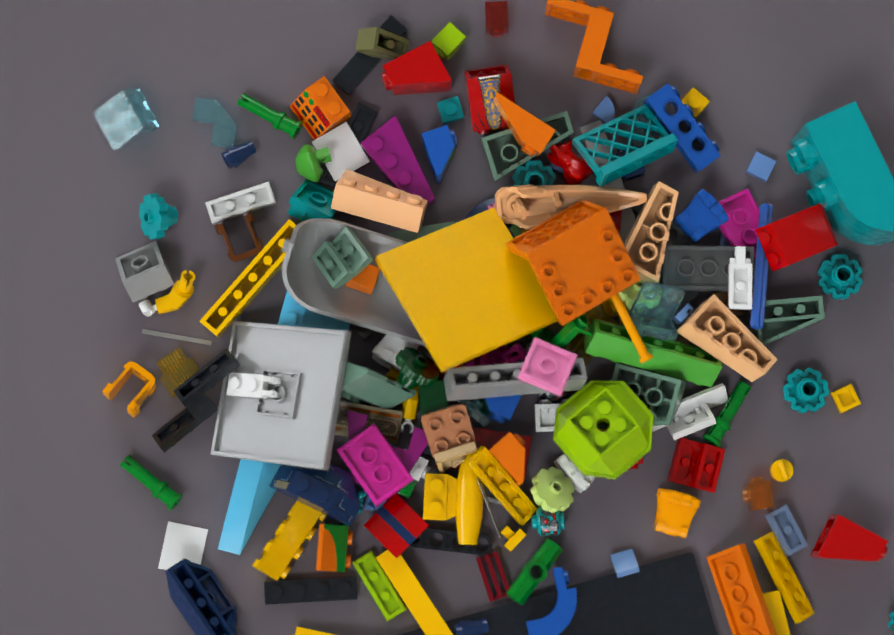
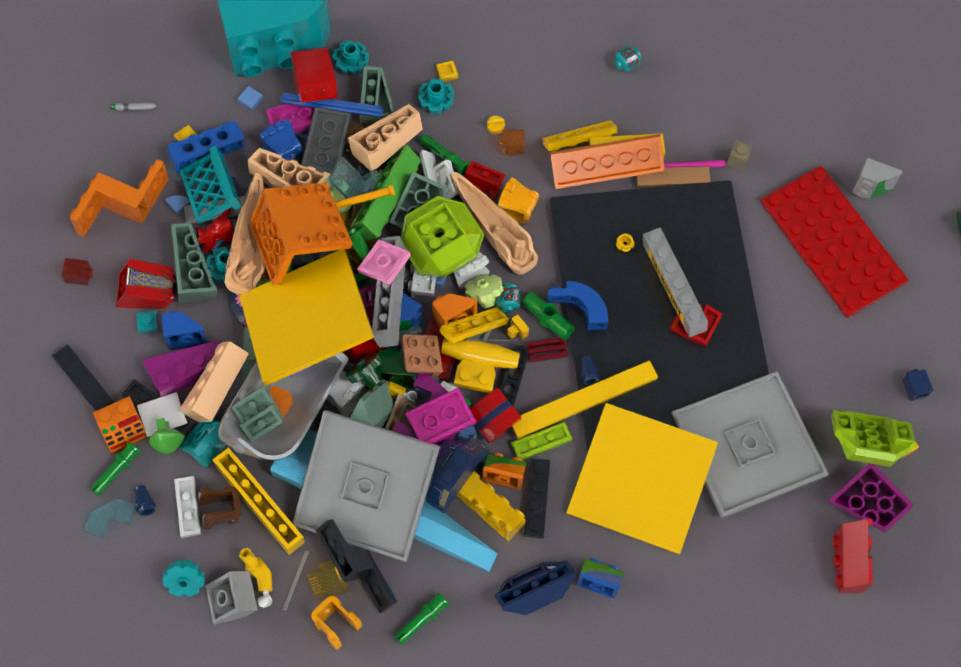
camera: 85 degrees left, 15 degrees down
(125, 117) = (87, 595): clear light blue bracket -> none
(182, 543) = (481, 602): white sticker -> none
(251, 385) = (353, 510): white hinge -> none
(381, 43) = (76, 363): olive slope -> none
(416, 72) = (109, 337): red slope -> none
(448, 41) = (87, 312): lime brick -> none
(453, 456) = (444, 356): tan tile -> none
(526, 128) = (177, 252): orange slope -> none
(624, 563) = (551, 247): medium blue tile -> none
(633, 501) = (500, 229): none -> light nougat piece
(683, 314) = (359, 166): medium blue tile -> none
(723, 31) = (133, 106): none -> light grey piece
(739, 280) = (340, 118): white hinge -> none
(786, 530) = (543, 128): sand blue plate -> none
(848, 541) = (558, 82): red slope -> none

